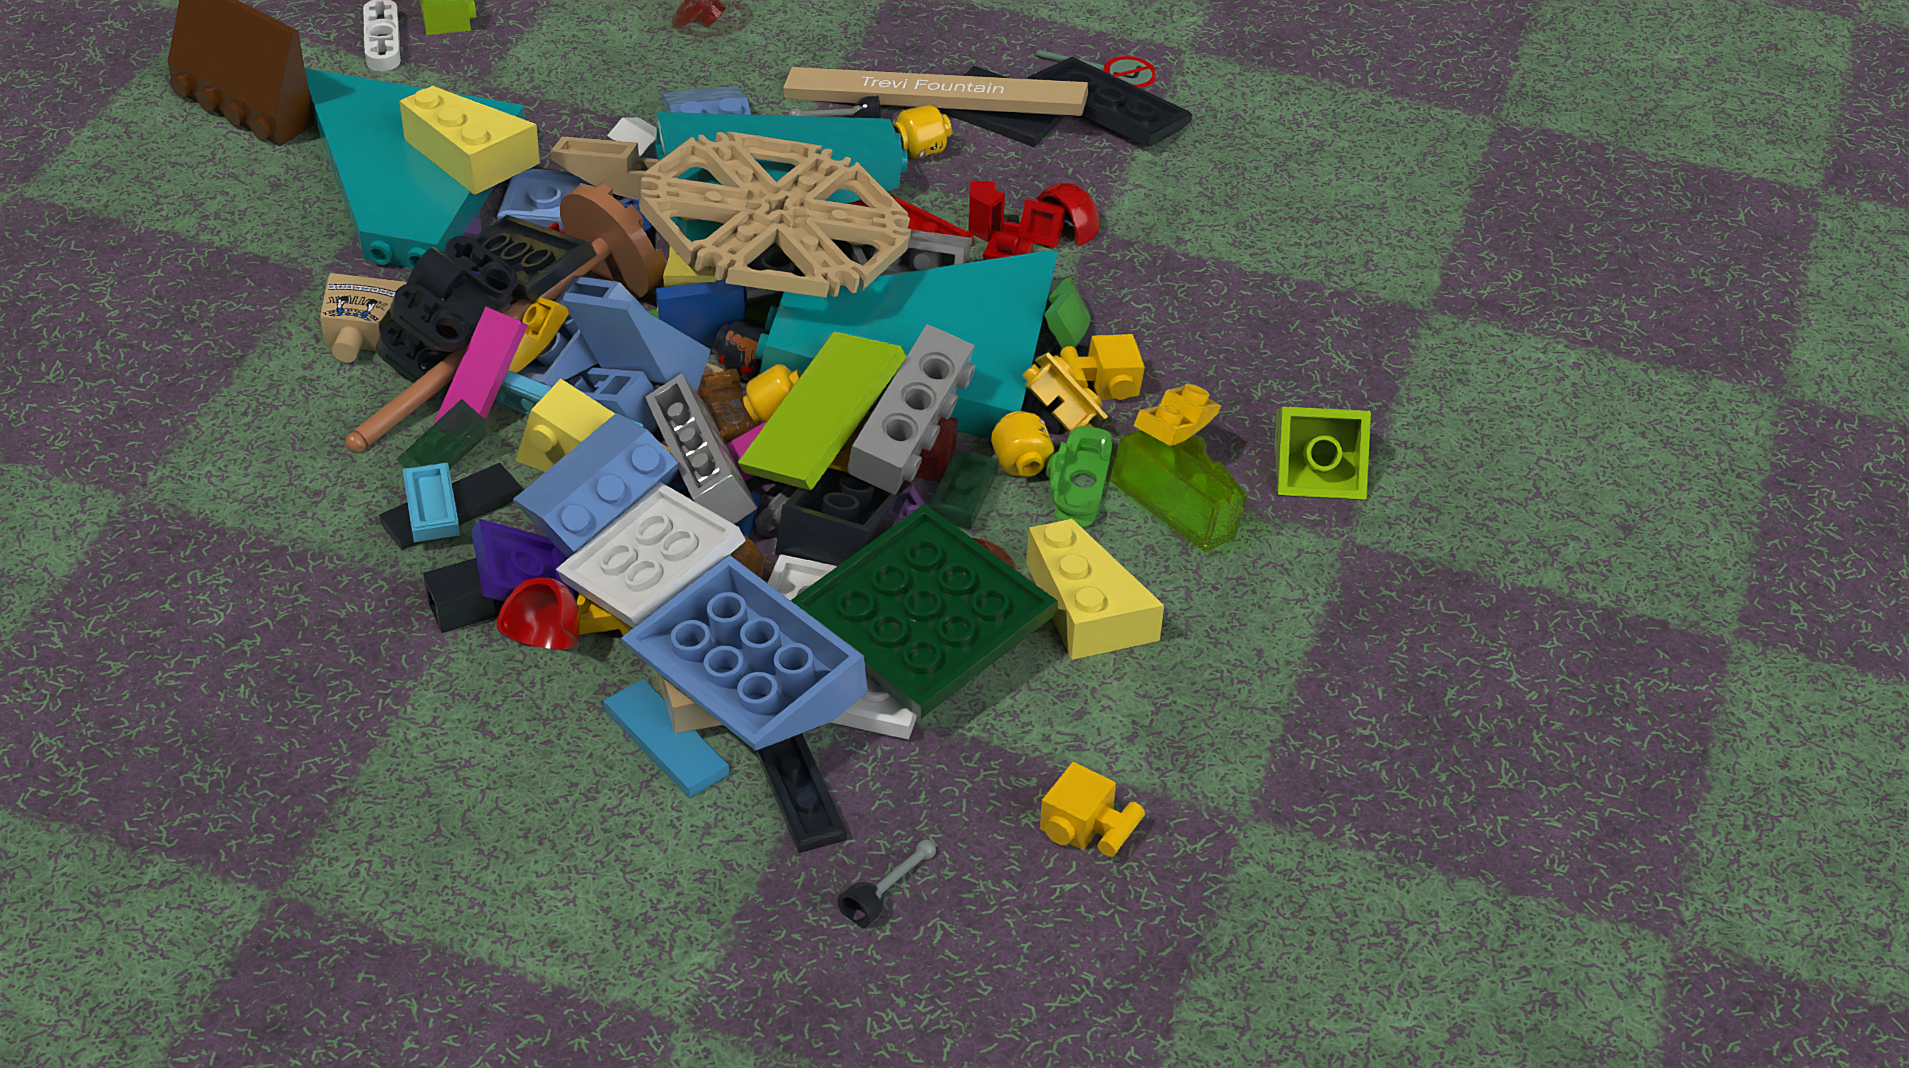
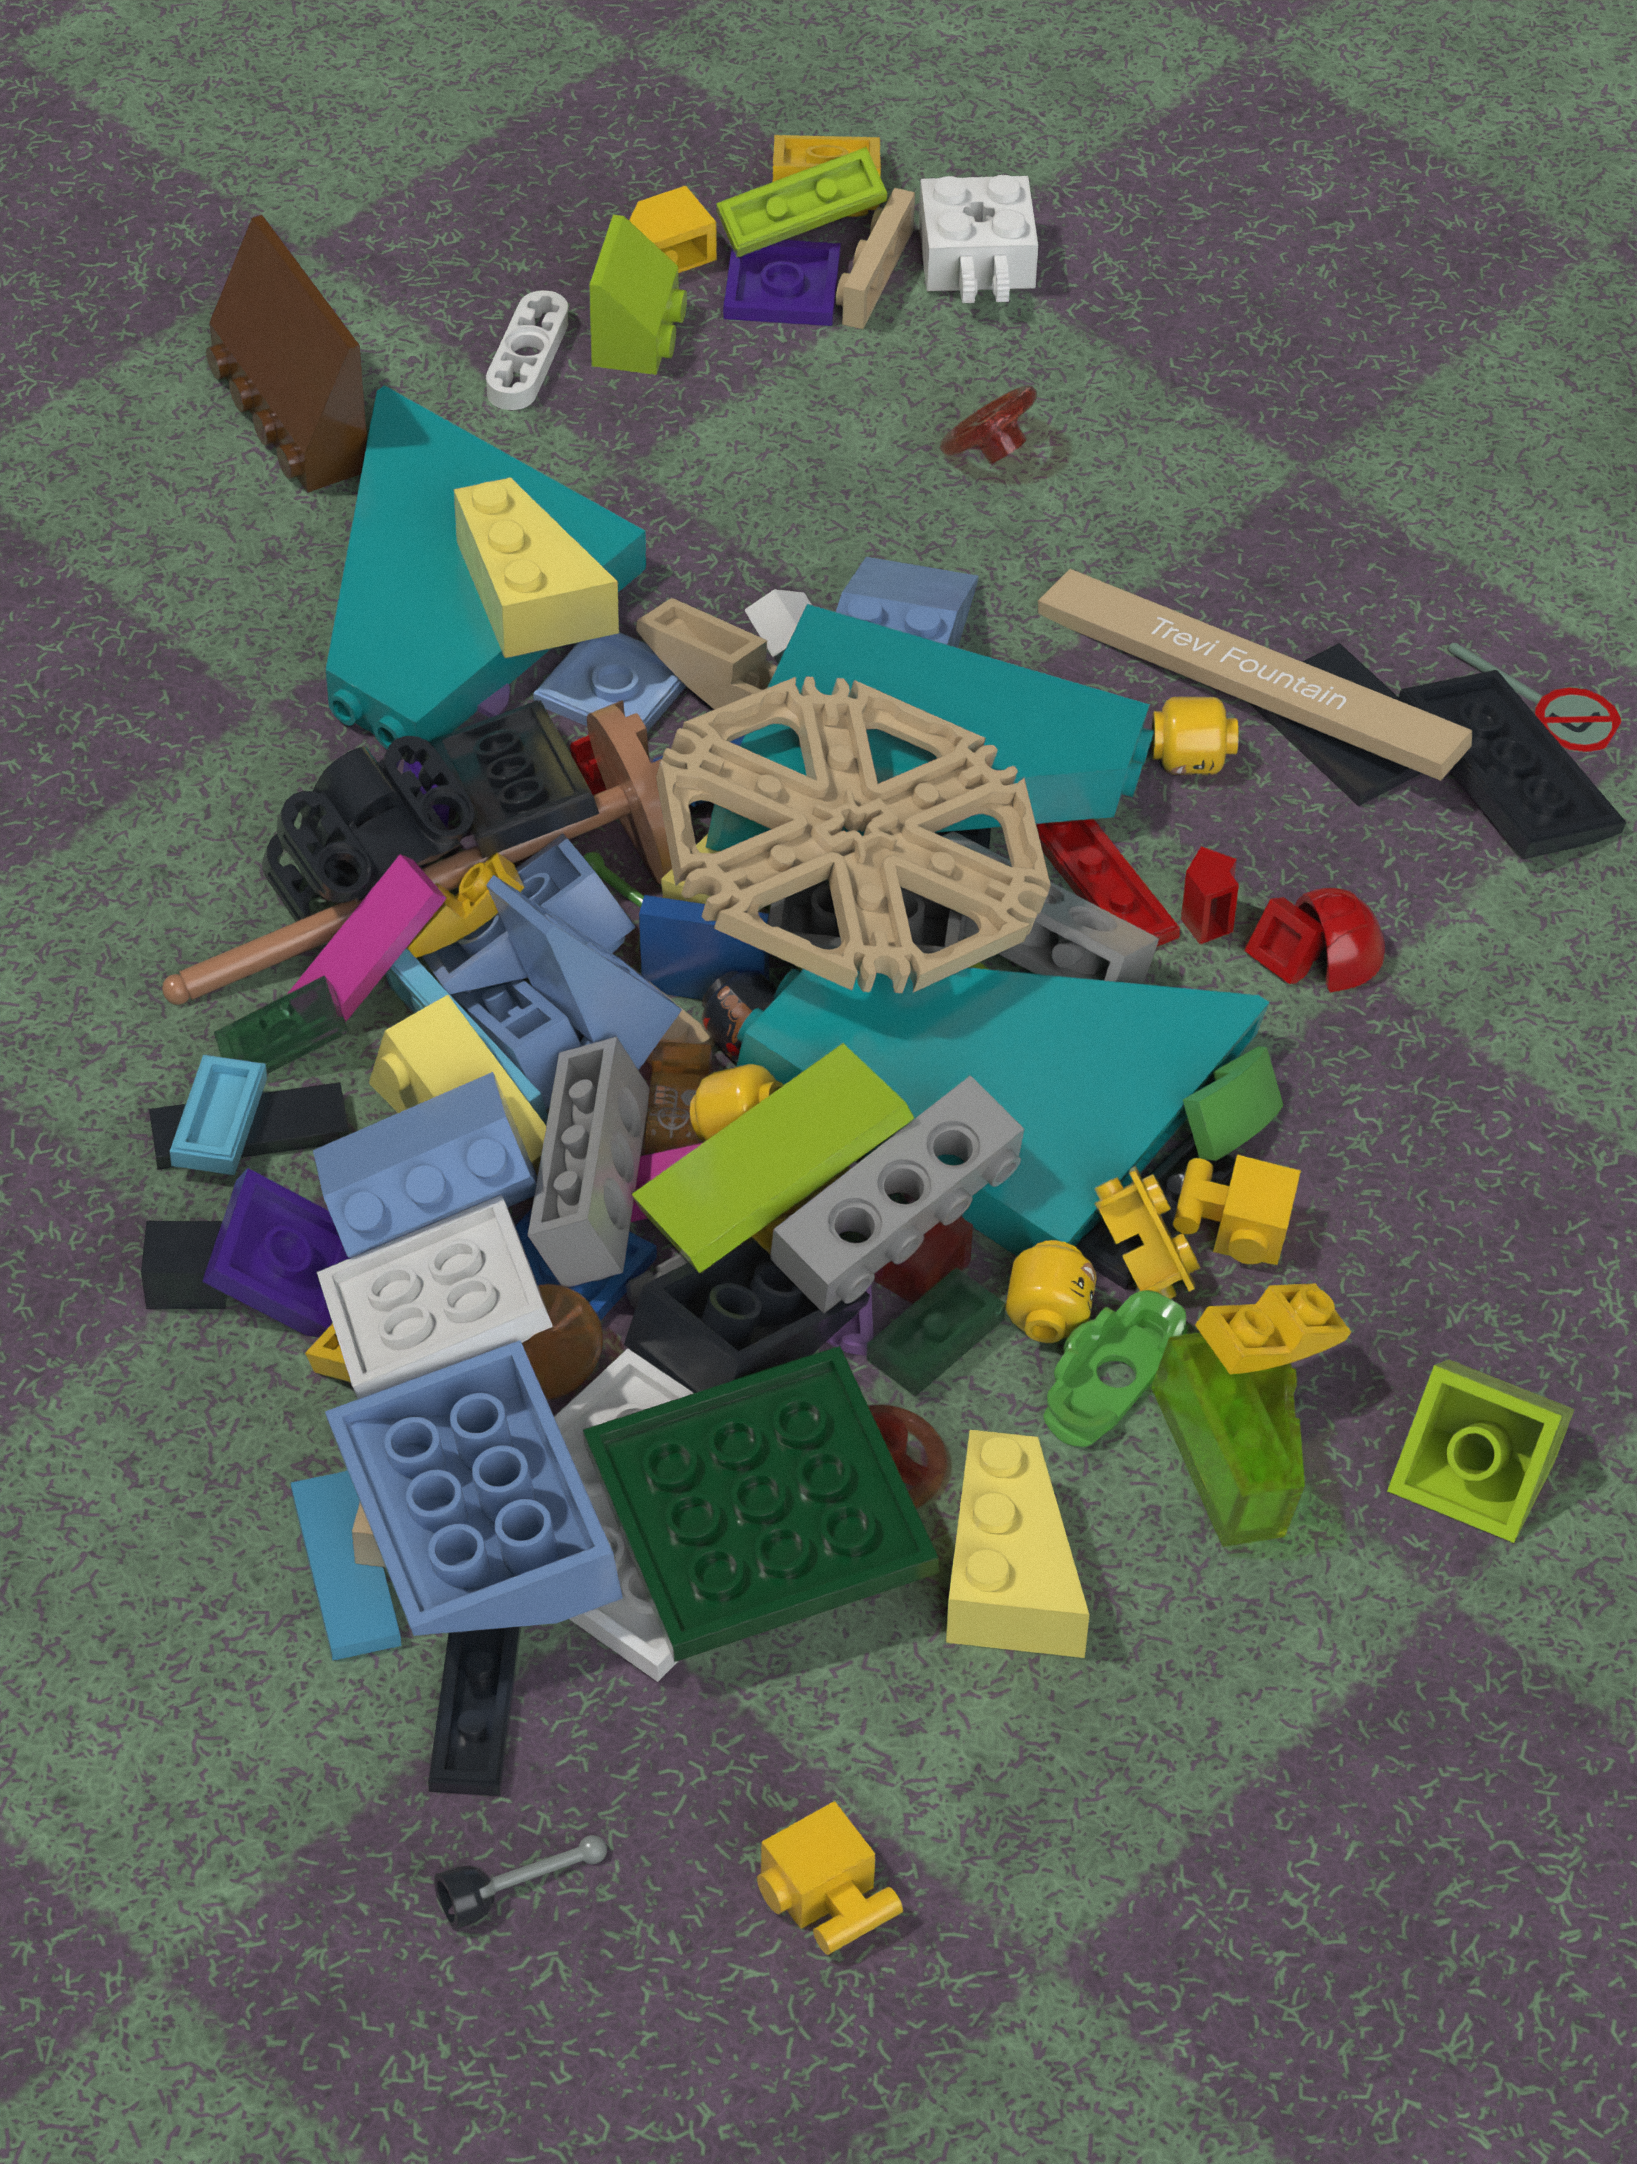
camera: 25 degrees right, 5 degrees up
(355, 313) = (254, 789): tan torso -> none
(541, 615) = (266, 1332): red helmet -> none
(864, 108) = (1134, 673): hinge -> none
(1008, 243) = (1218, 964): red tile -> none

